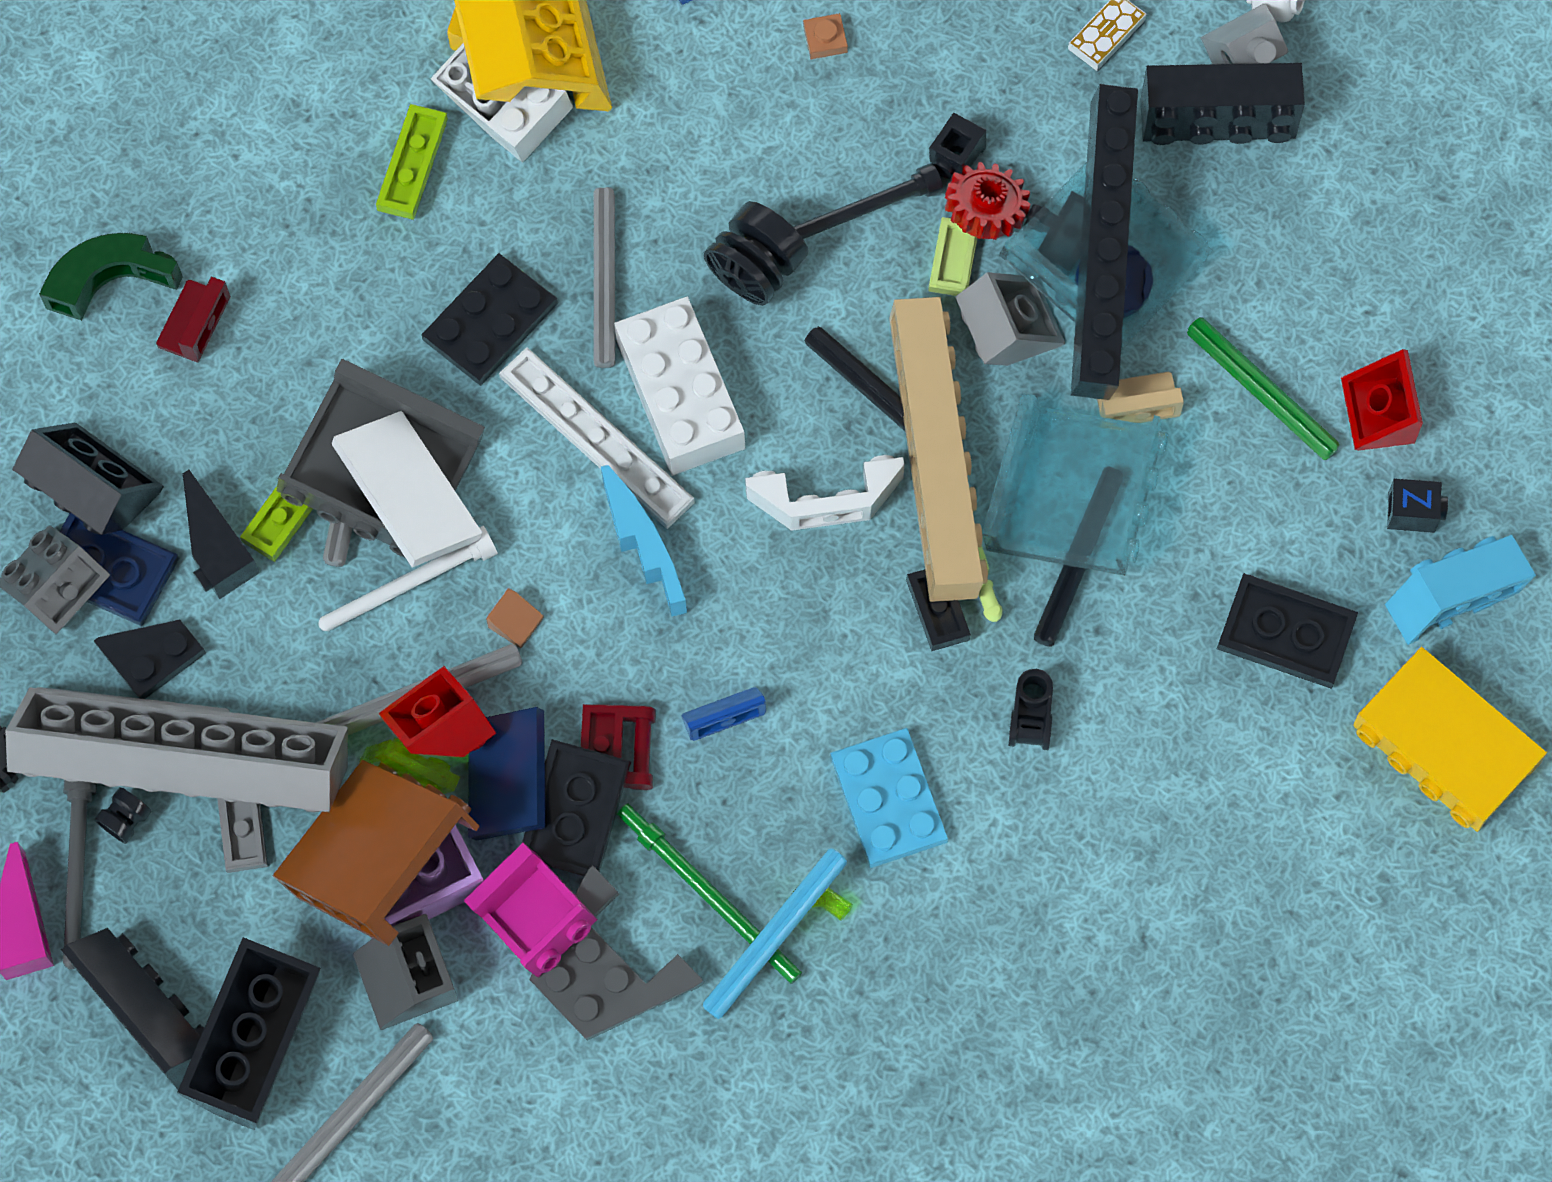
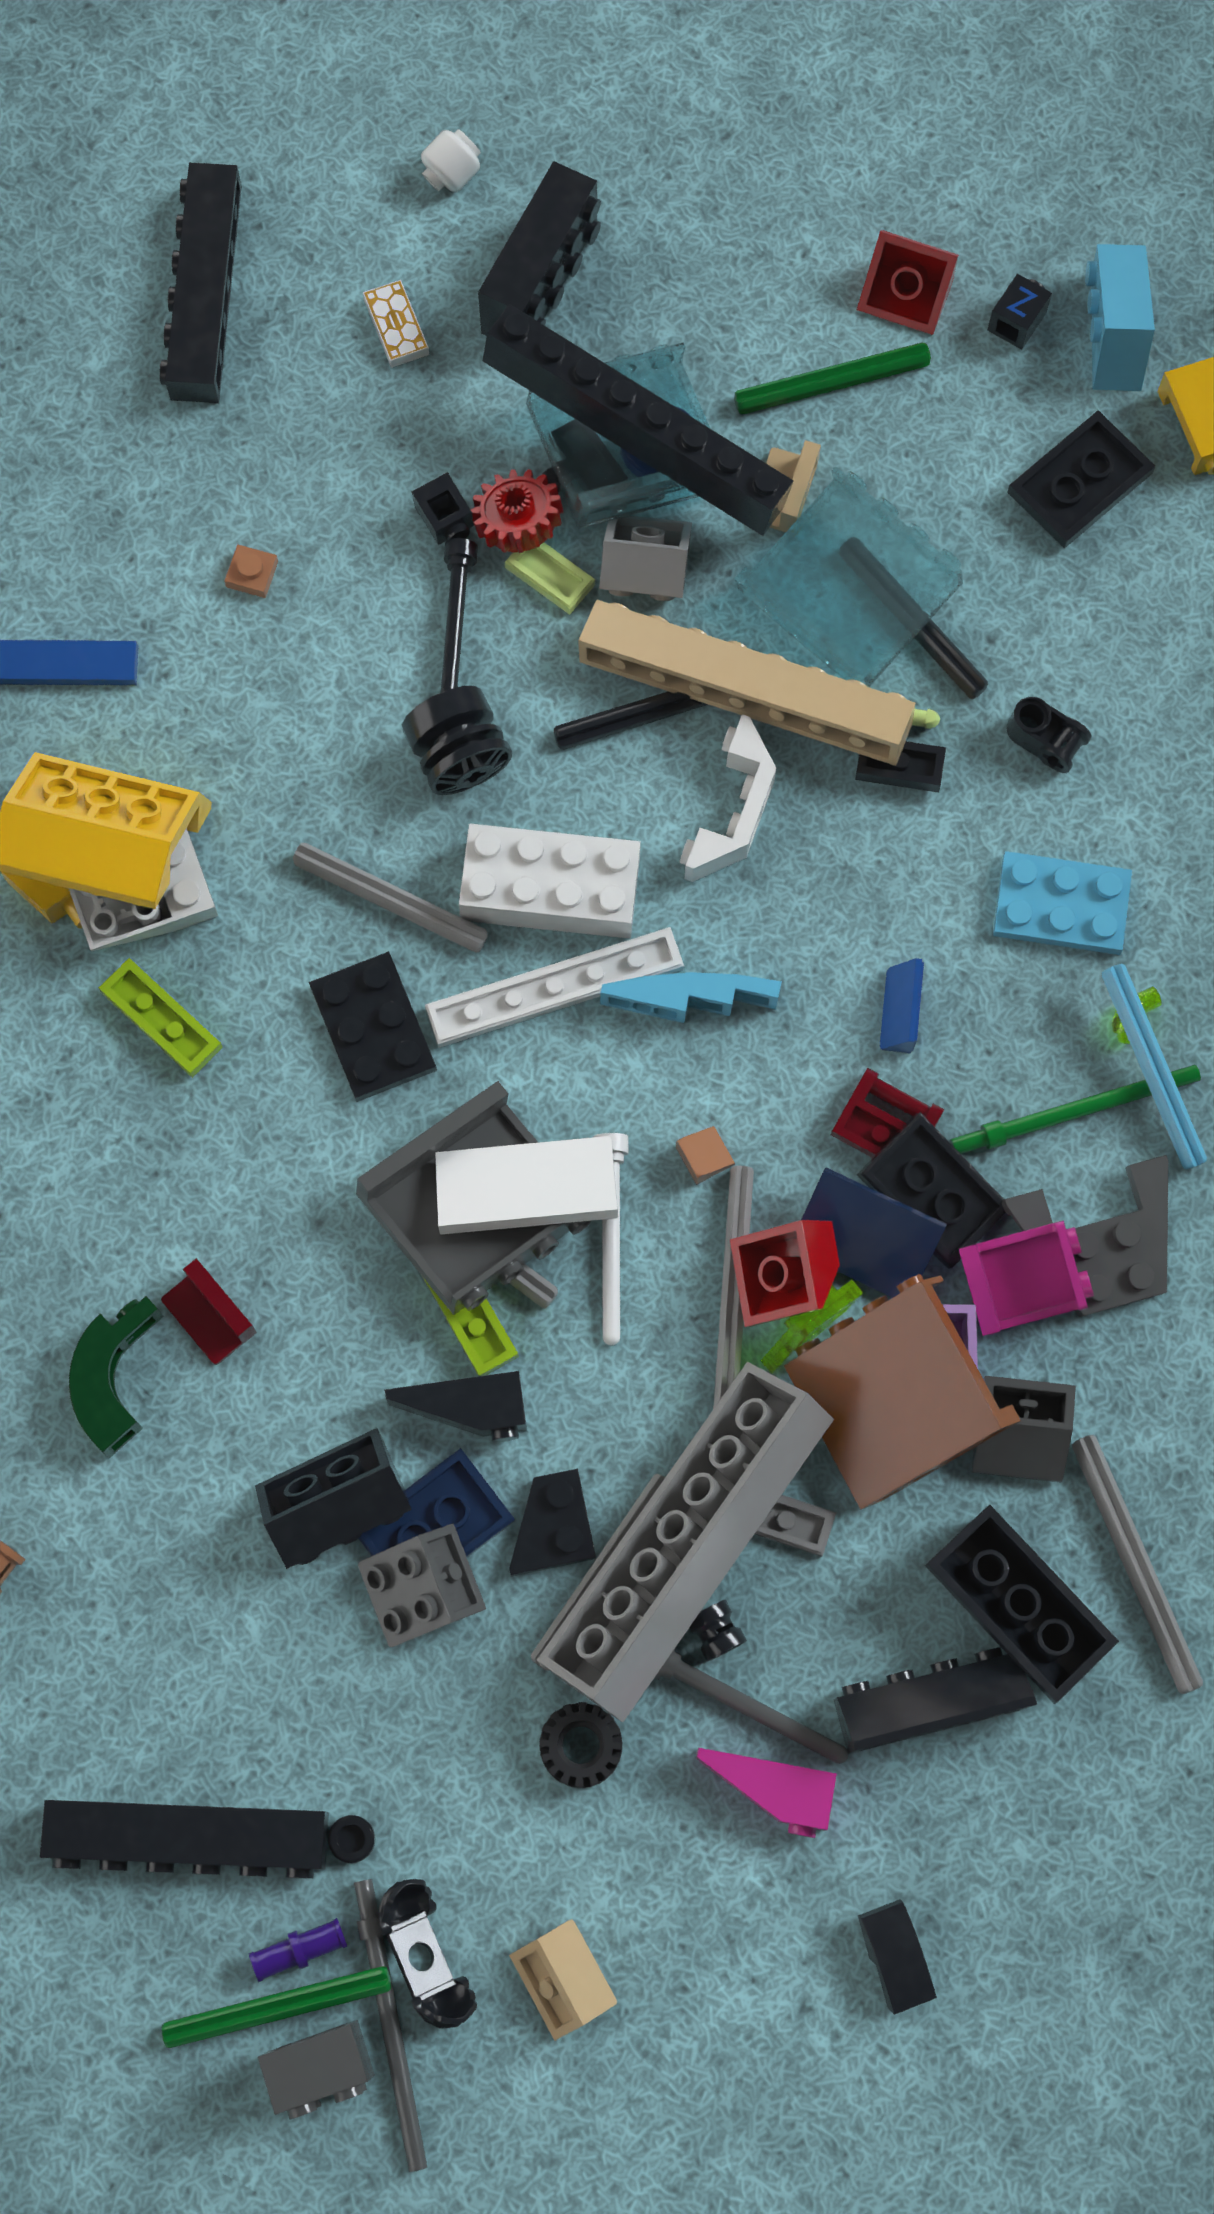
camera: 65 degrees left, 5 degrees up
(1246, 39) = (490, 204): light grey torso -> none

